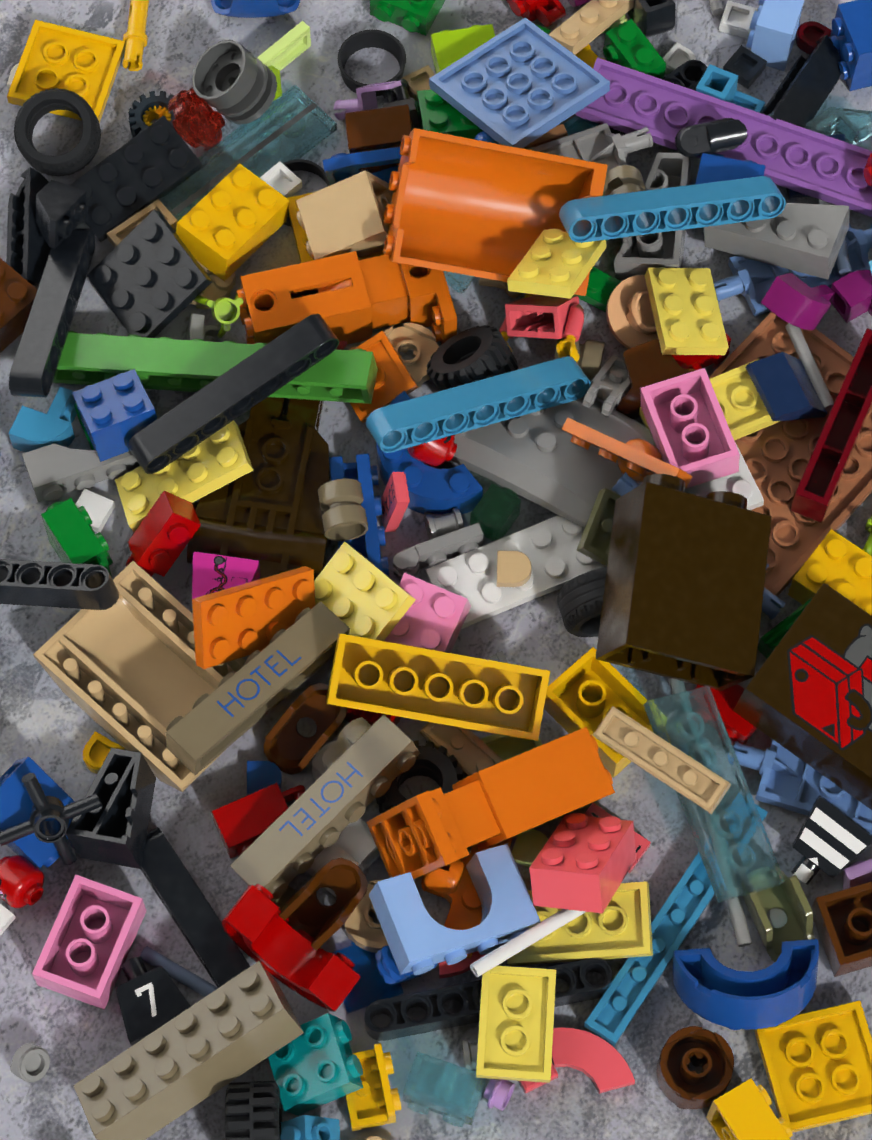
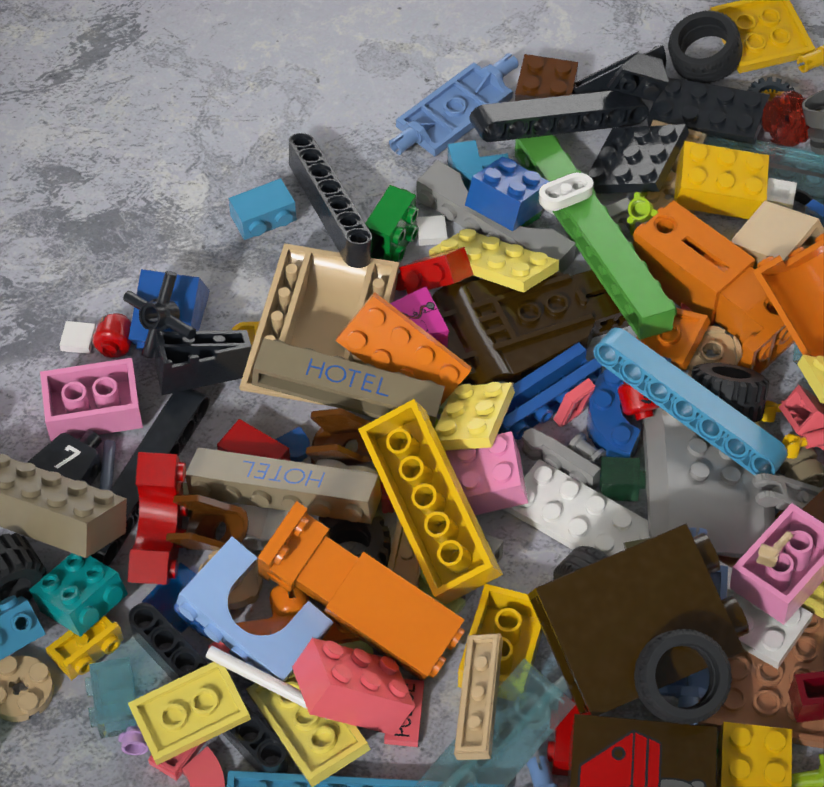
camera: 60 degrees right, 10 degrees down
(164, 365) = (565, 191): none -> white plate
(233, 393) = (573, 242): black beam -> none
(342, 509) = (533, 369): dark tan wheel -> none
(512, 569) = (577, 512): tan tile -> none
(634, 457) = (728, 536): orange plate -> none
(686, 438) = (769, 555): none -> tan hand
(800, 569) = (718, 668): none -> black tyre

